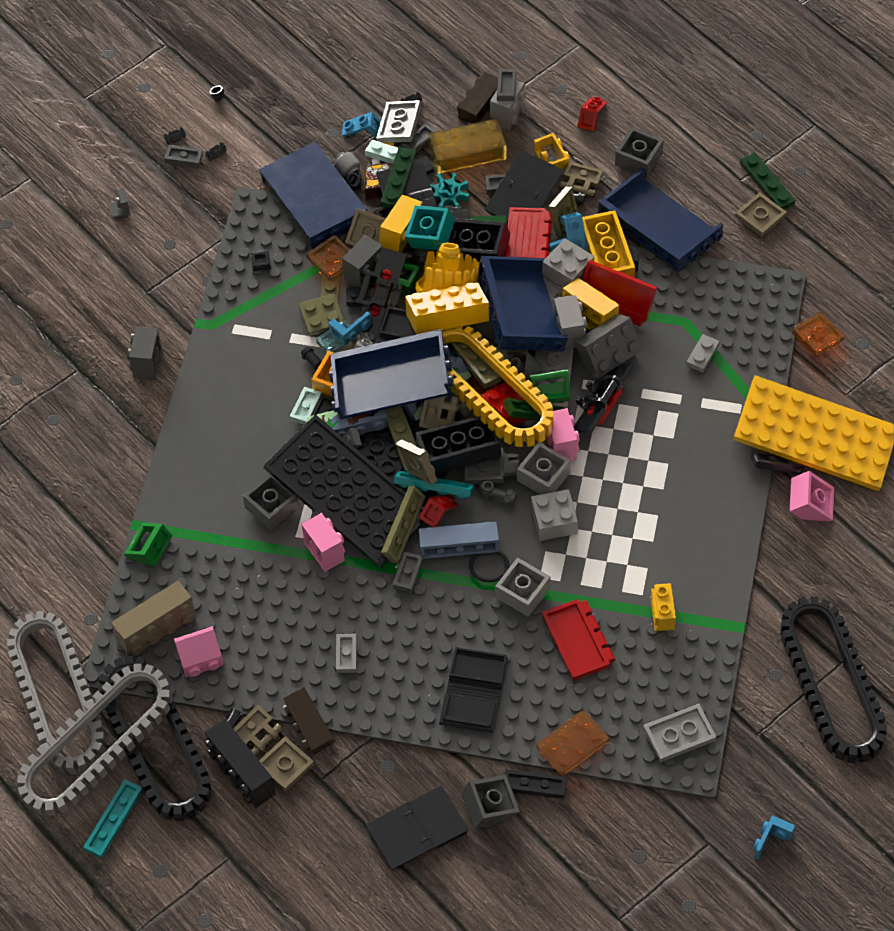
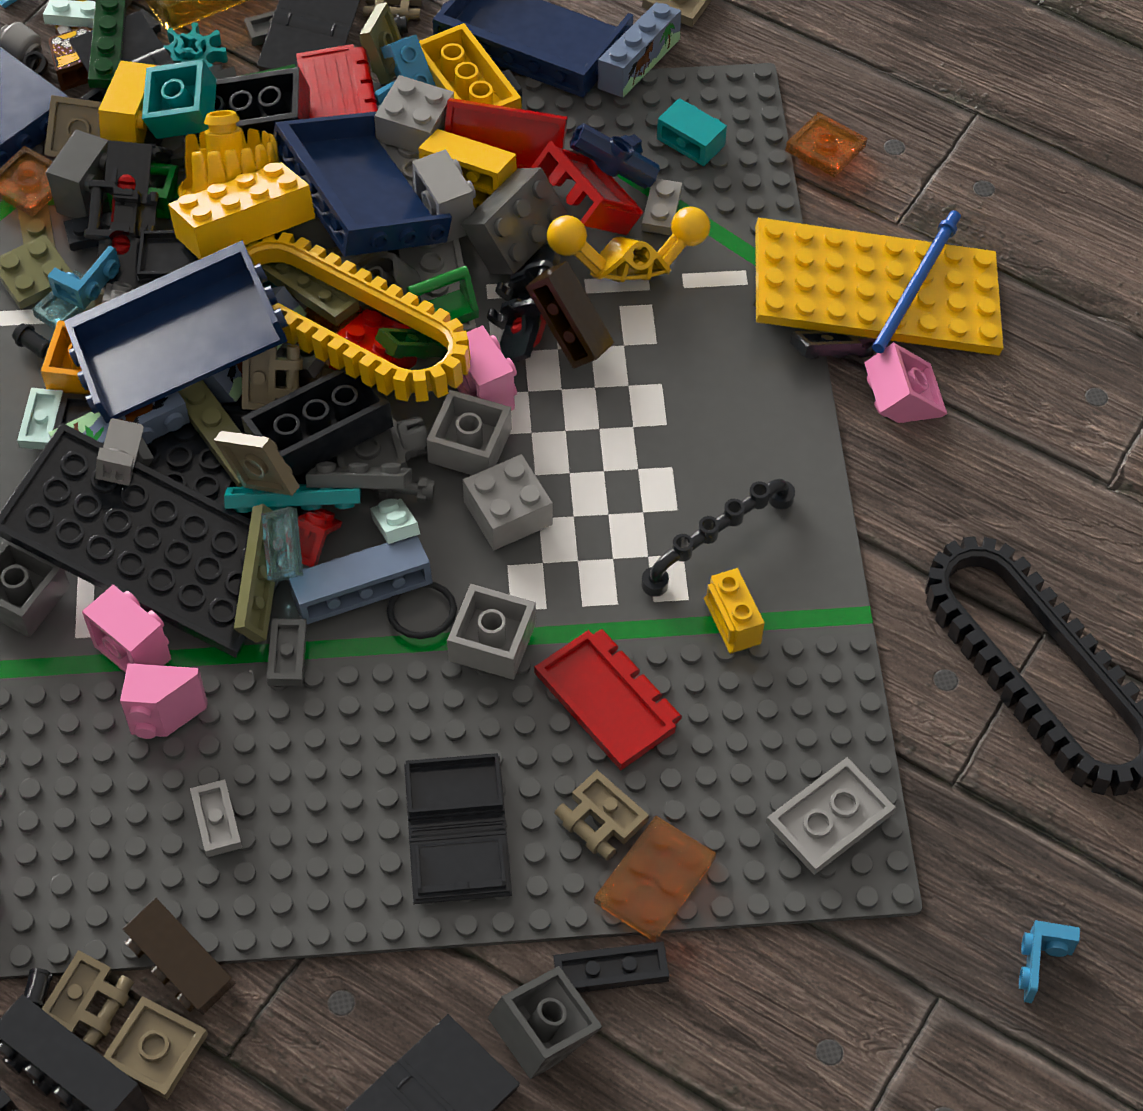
camera: 20 degrees left, 0 degrees up
(332, 581) = (161, 698): none -> bright pink slope
(343, 438) = (119, 452): none -> light grey bracket
(419, 511) = (282, 544): none -> clear light blue plate
(473, 481) = (359, 476): none -> dark grey plate
(487, 511) = (394, 520): none -> light aqua plate
(558, 697) = (609, 807): none -> dark tan plate
(621, 412) = (570, 314): none -> dark brown brick
(663, 332) = (611, 207): none -> red window
(667, 382) = (626, 257): none -> yellow piece
(682, 316) = (616, 155): none -> dark blue piece
(714, 547) = (777, 492): none -> black bar
(721, 247) = (639, 49): none -> sand blue brick
(735, 309) = (691, 132): none -> teal brick
(870, 406) = (946, 230): none -> blue bar

